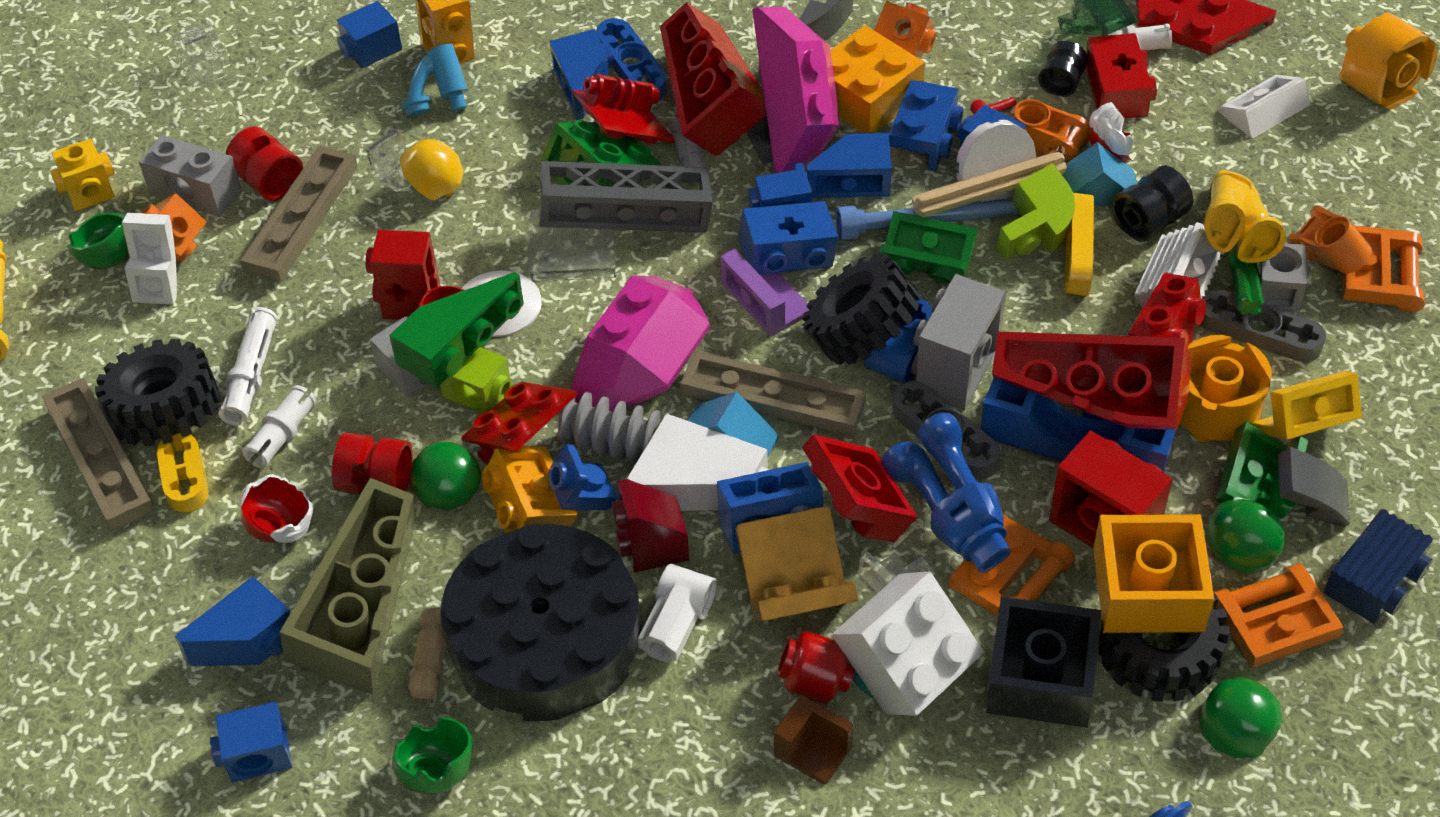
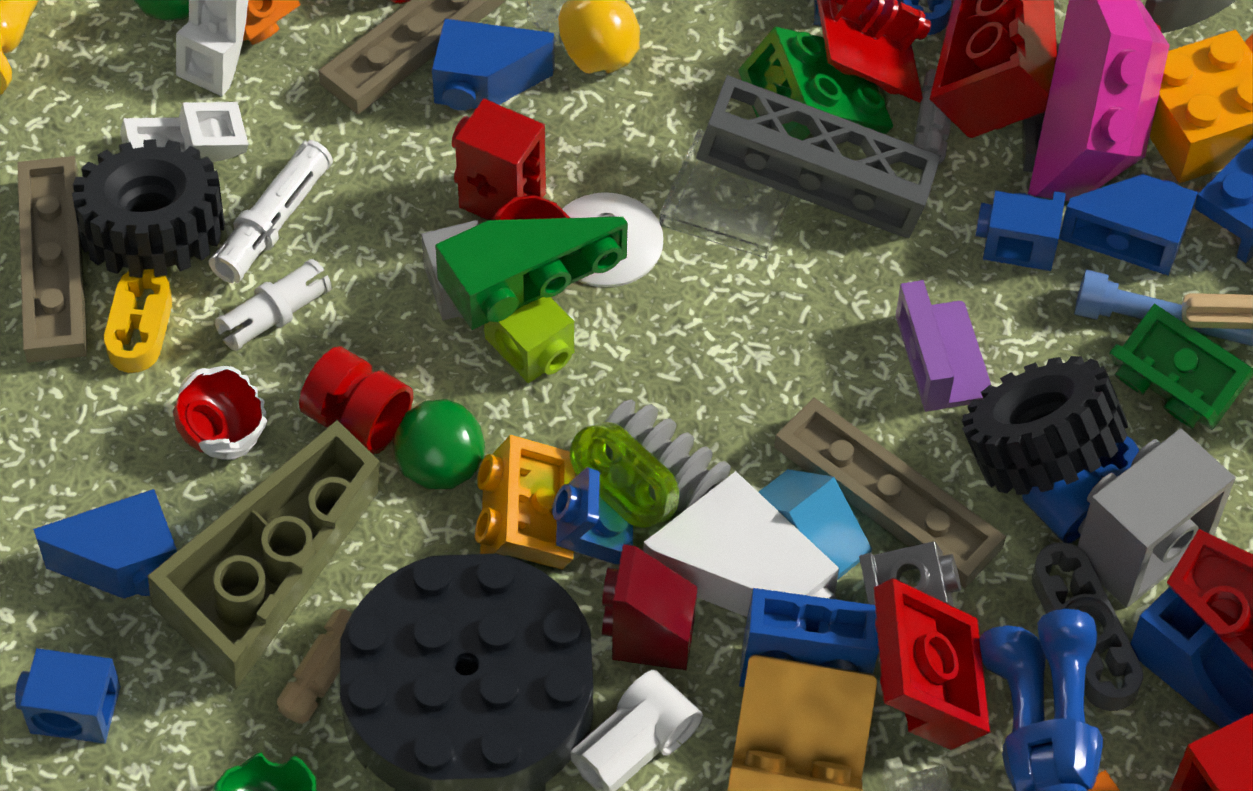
camera: 20 degrees right, 5 degrees up
(173, 323) = (207, 126): none -> white slope
(359, 212) = (488, 63): none -> blue slope
(516, 418) = (553, 405): red hinge -> none
(593, 441) = (628, 476): none -> clear neon green plate
(640, 342) = (753, 359): dark pink wedge -> none
(788, 237) = (1002, 288): blue brick -> none
(834, 426) = (937, 571): none -> flat silver brick

